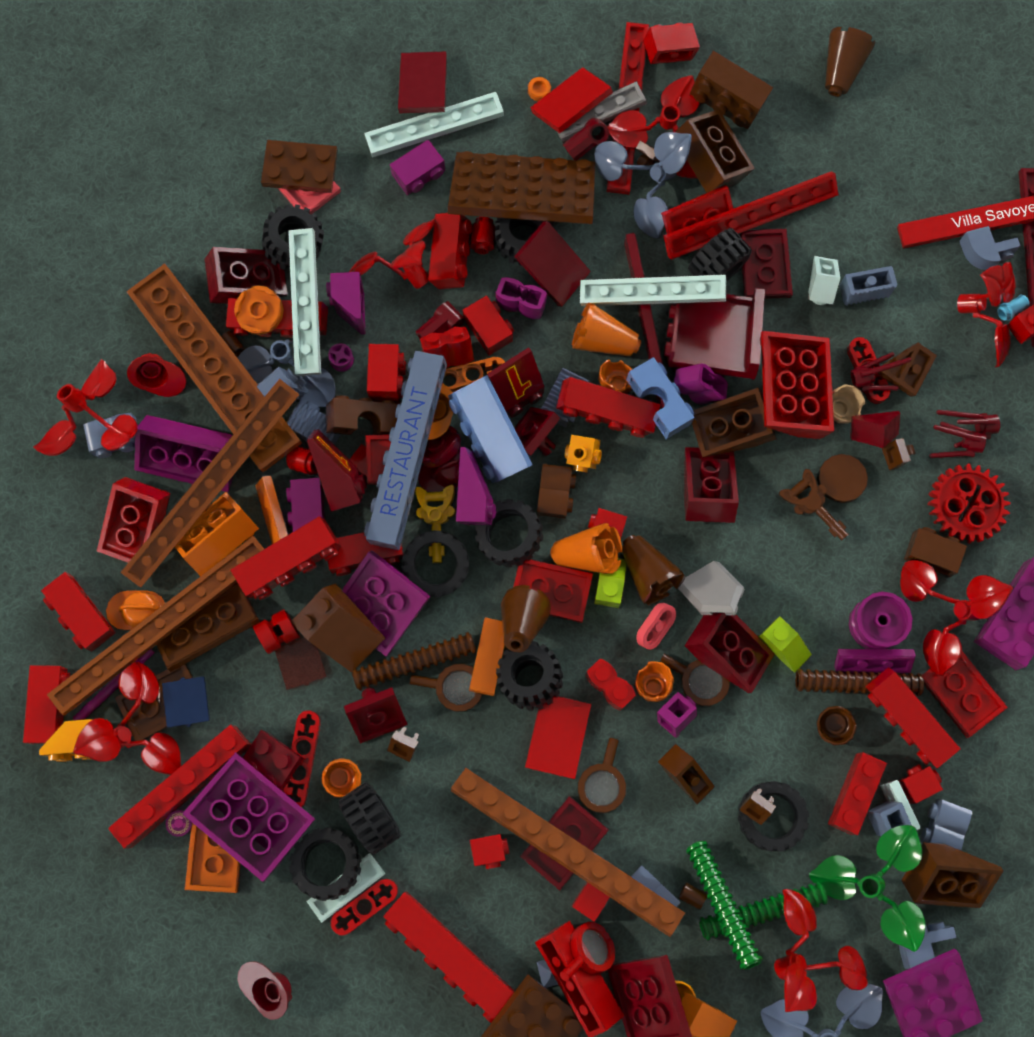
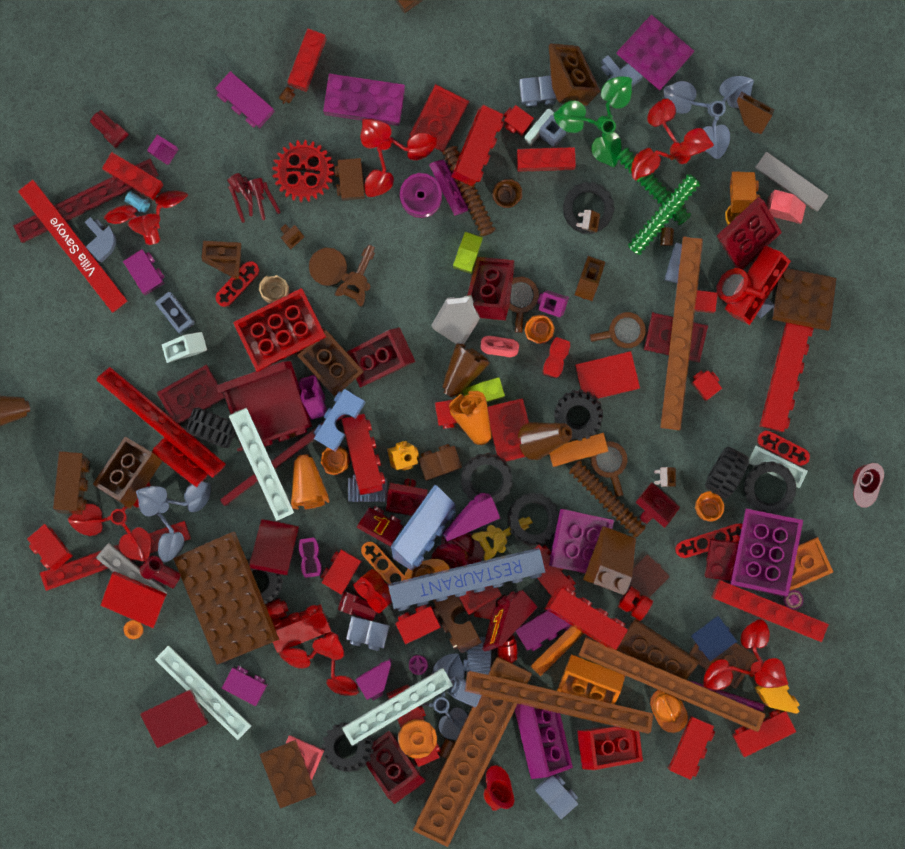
camera: 115 degrees left, 10 degrees up
(98, 384) = (577, 833): red plant -> none
(405, 320) = (367, 632): none -> sand blue brick
(648, 156) = (148, 522): reddish brown tile -> none
(864, 375) = (247, 285): dark red plant -> none
(875, 428) = (281, 259): dark red slope -> none
(929, 276) = (144, 272): none -> magenta brick

